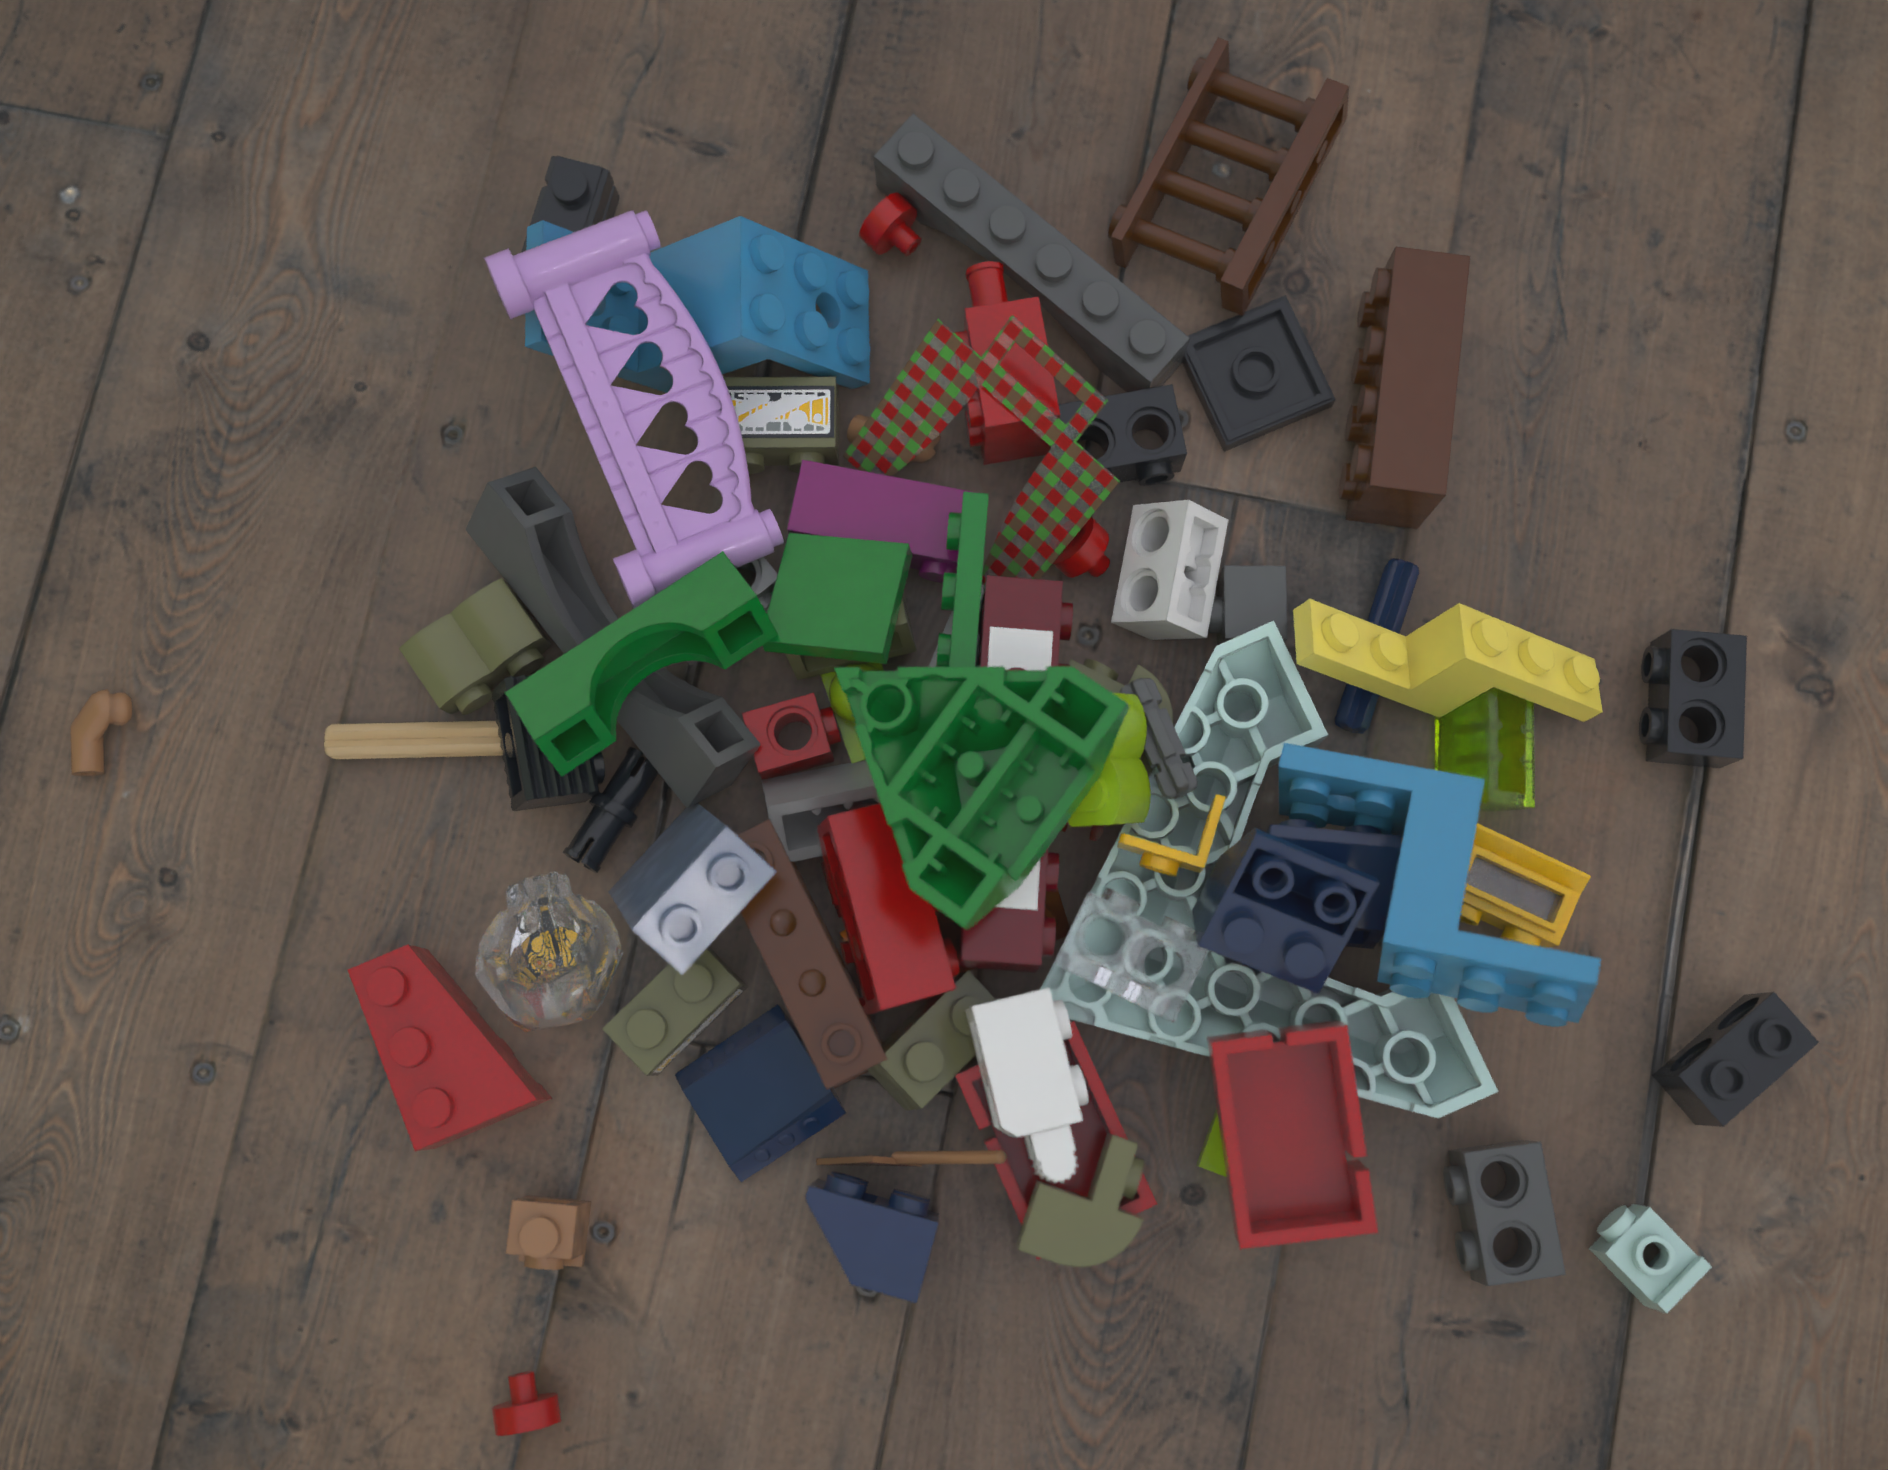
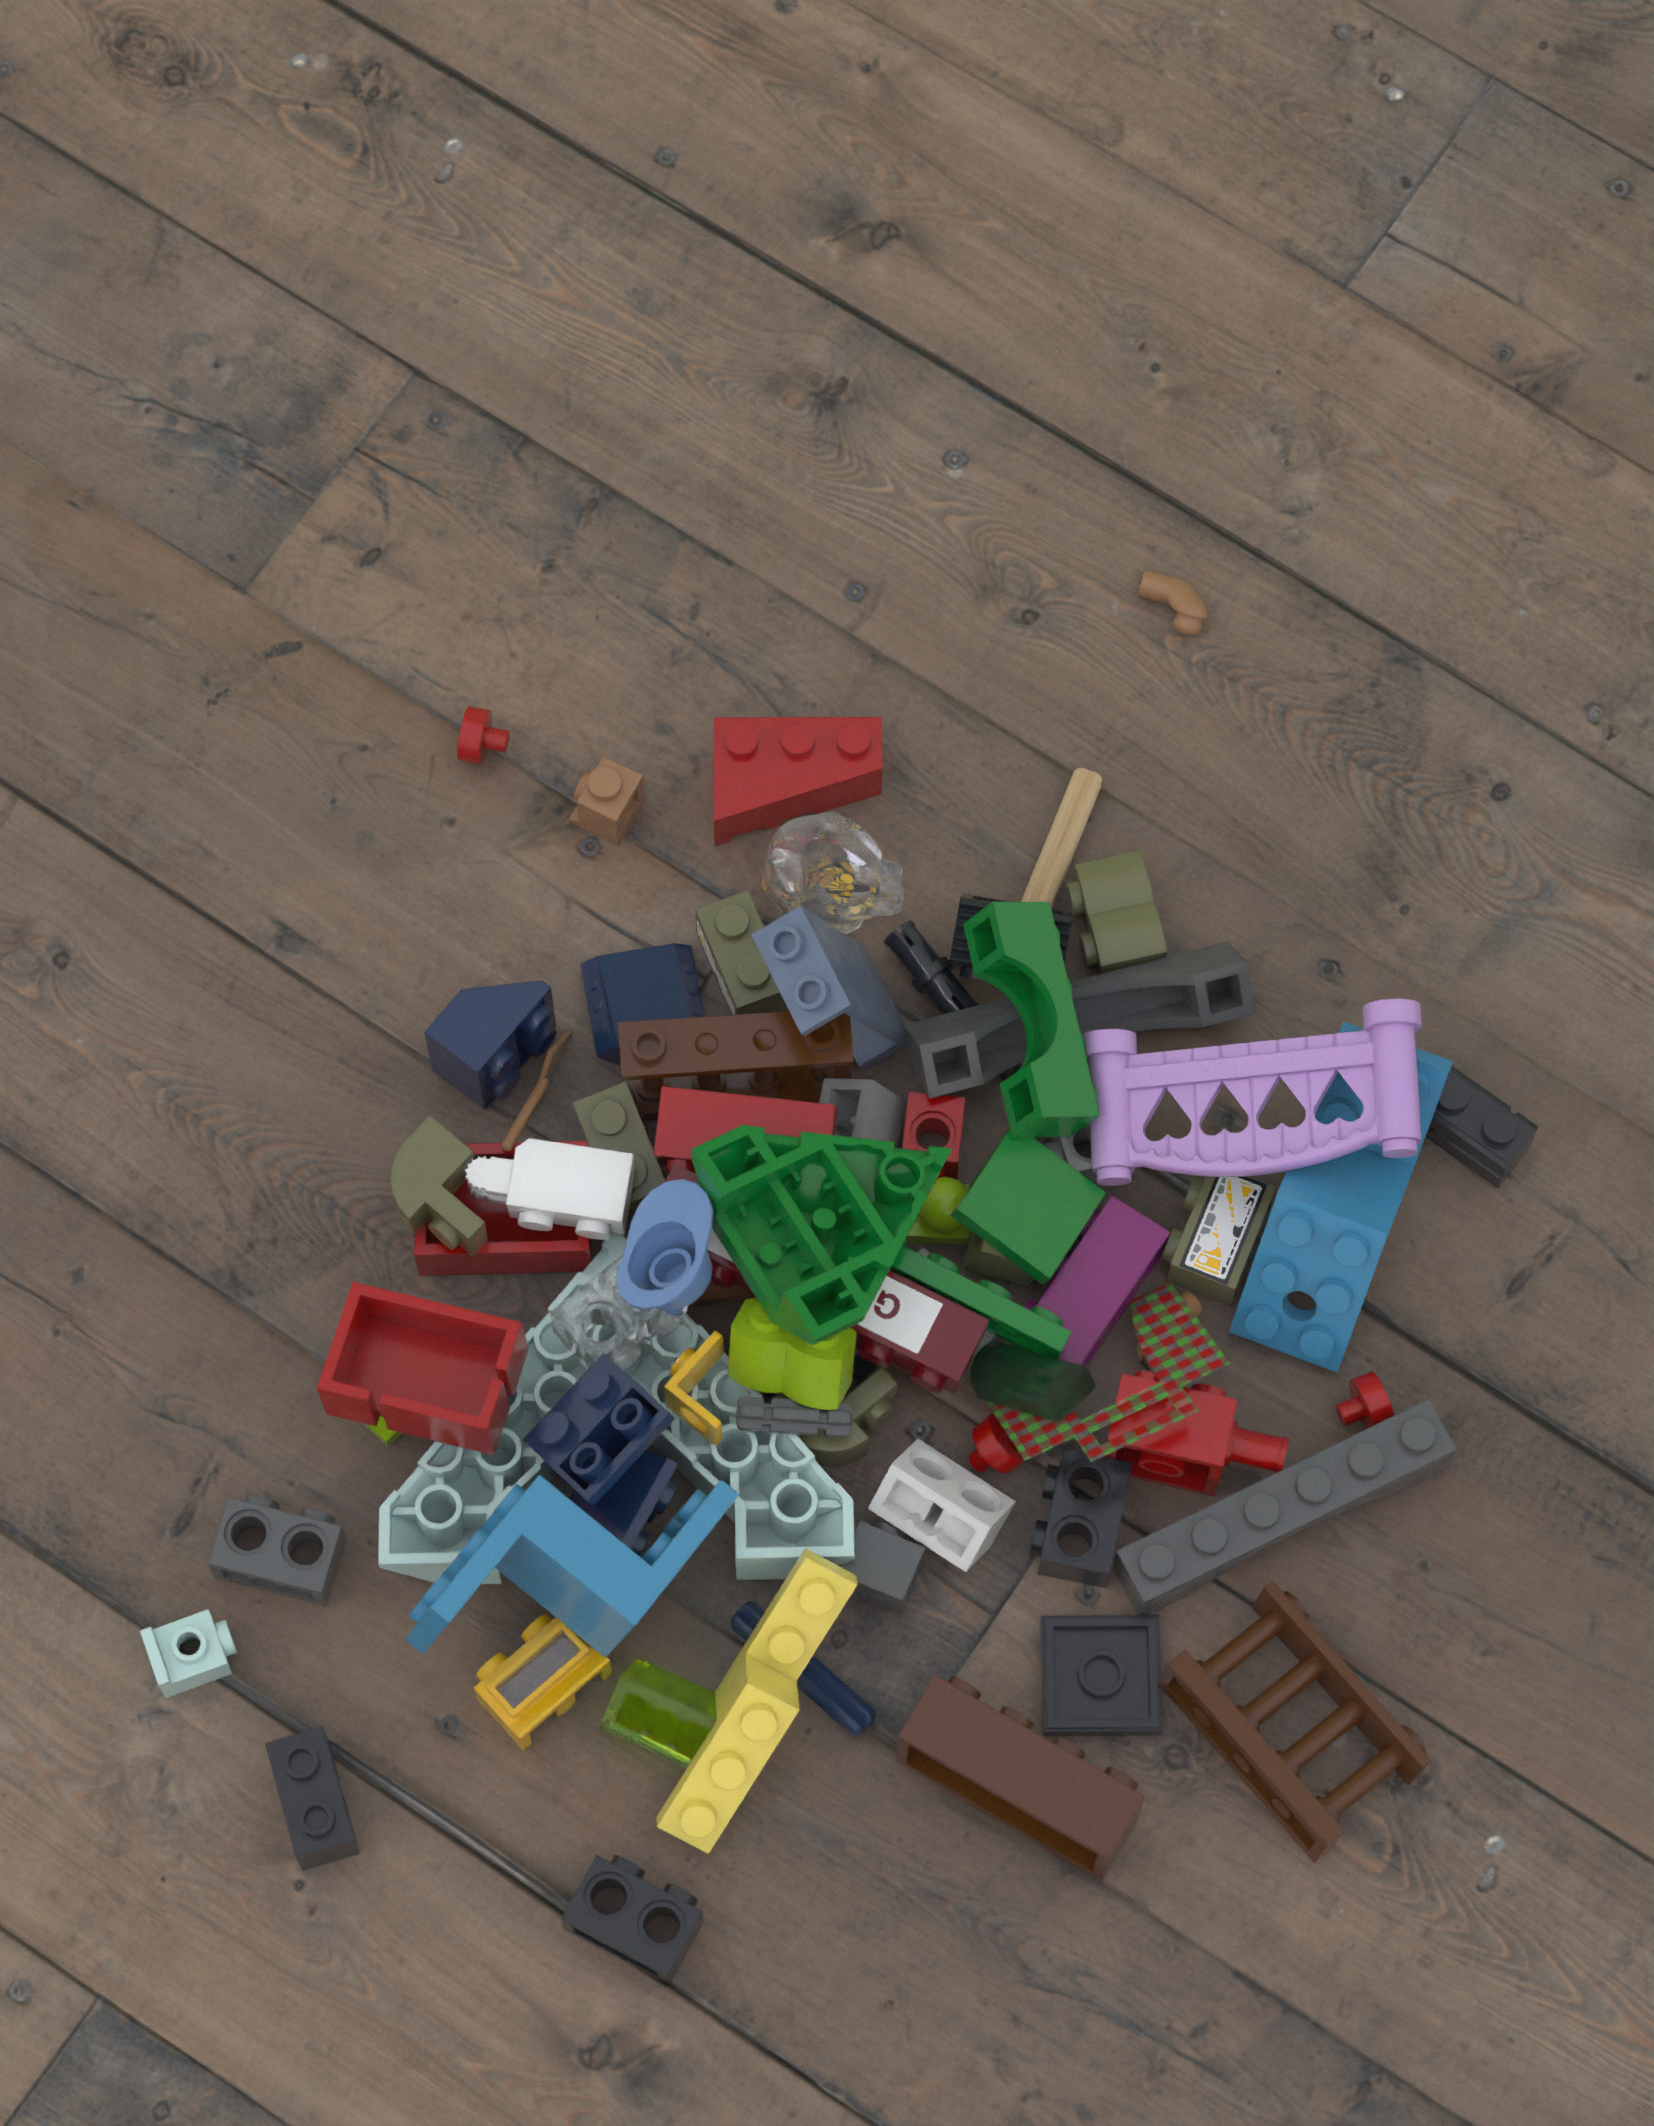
camera: 110 degrees right, 10 degrees down
(1020, 518) = (1029, 1380): none -> clear green brick
(1071, 919) = (667, 1249): none -> medium blue piece

